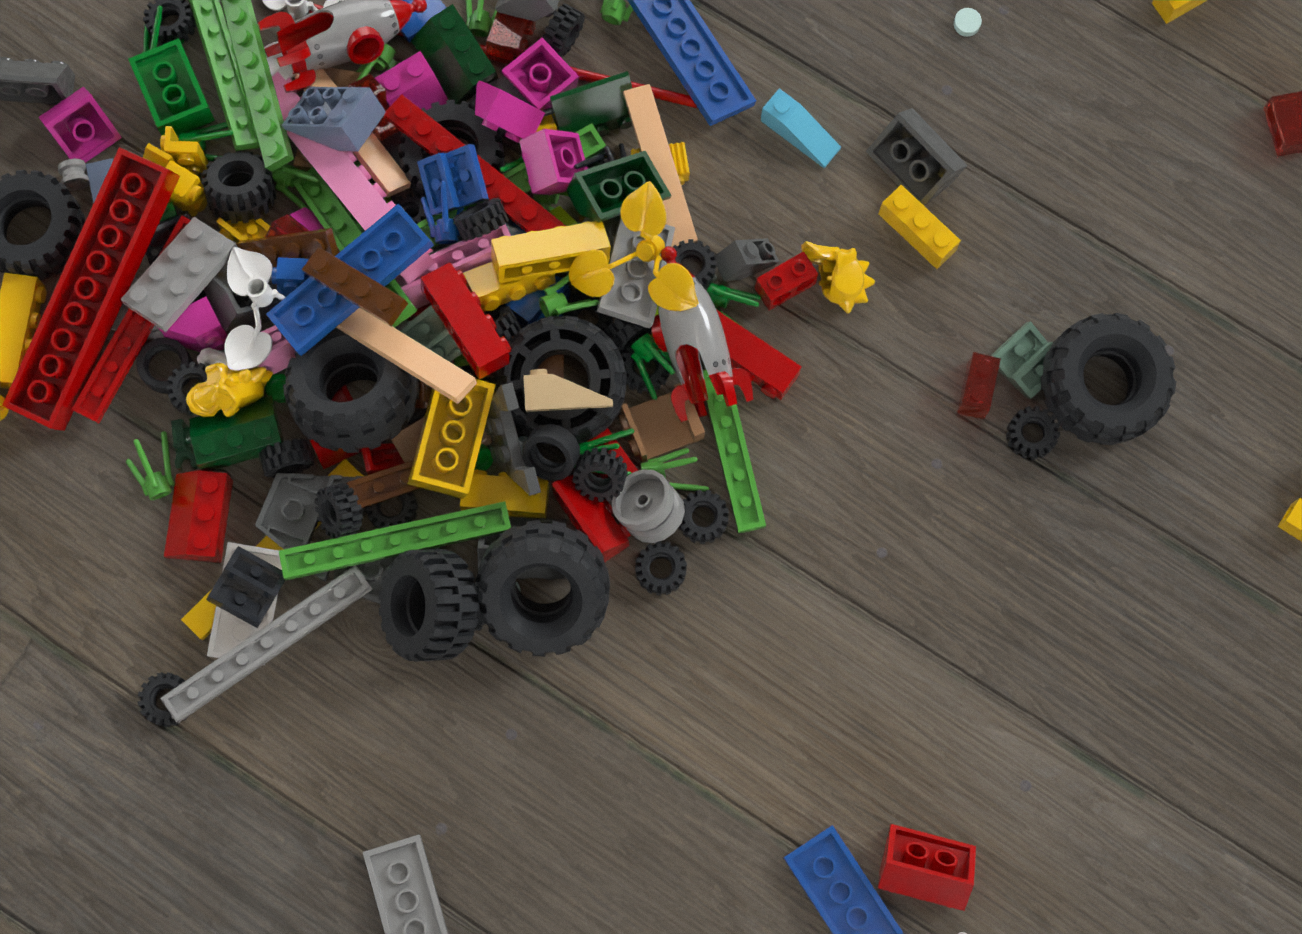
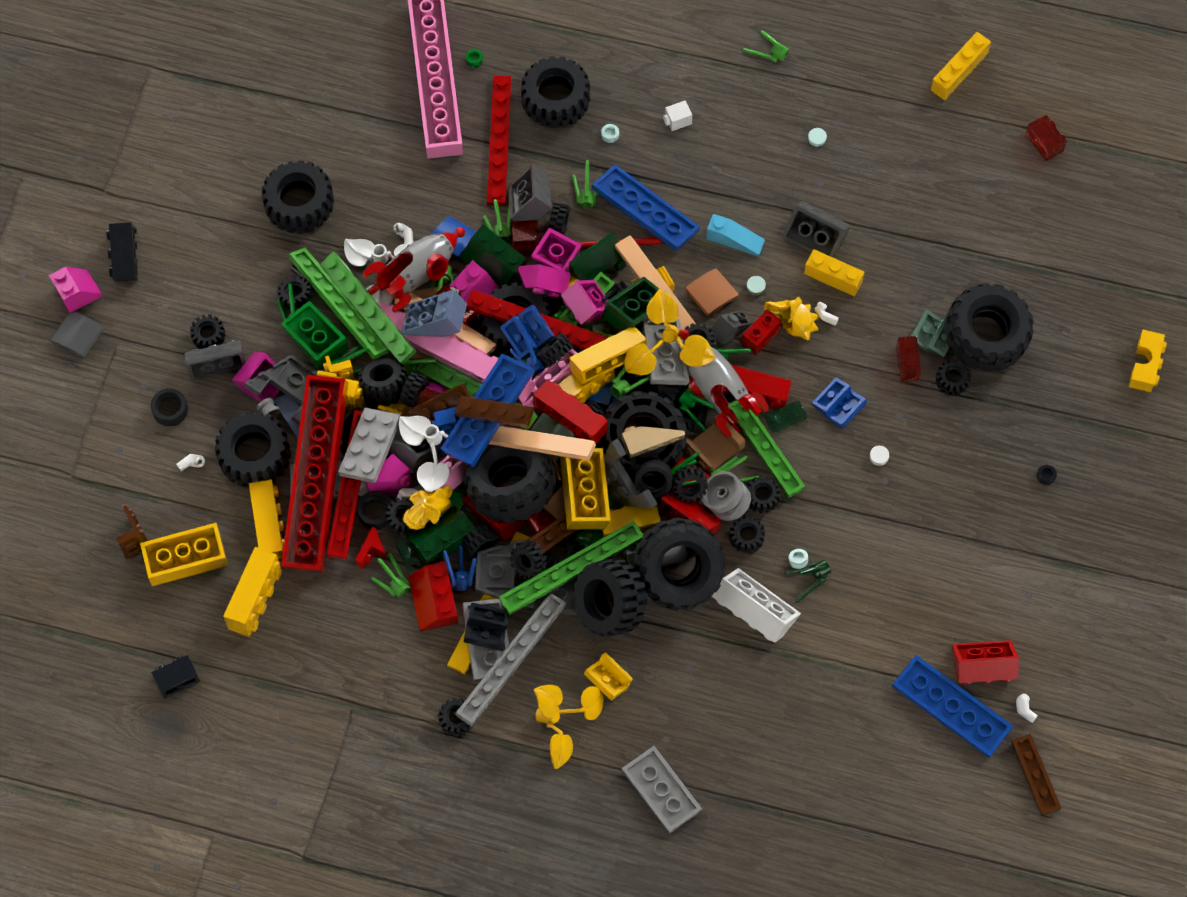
camera: 15 degrees left, 10 degrees down
(27, 26) = (204, 323): none -> black tyre
(105, 134) = (286, 375): none -> dark grey wing
(143, 412) = (371, 545): none -> red slope
(243, 505) = (461, 580): none -> blue plant
(270, 208) = (412, 389): none -> black tyre
(286, 736) = (549, 699): none -> yellow plant
(393, 713) = (608, 676): none -> yellow bracket
(435, 504) = (586, 537): none -> dark green head
(636, 676) = (756, 605): none -> white slope
(719, 627) = (798, 558): none -> light aqua tile
(739, 200) = (711, 292): none -> nougat slope
(741, 651) = (818, 569): none -> dark green plant
(777, 413) = (786, 416): none -> clear green plate
(804, 210) = (756, 285): none -> light aqua tile
(859, 417) = (839, 402): none -> blue slope
(882, 282) = (825, 316): none -> white arm
(887, 513) = (879, 455): none -> white tile
(1114, 618) = (1046, 474): none -> black tile

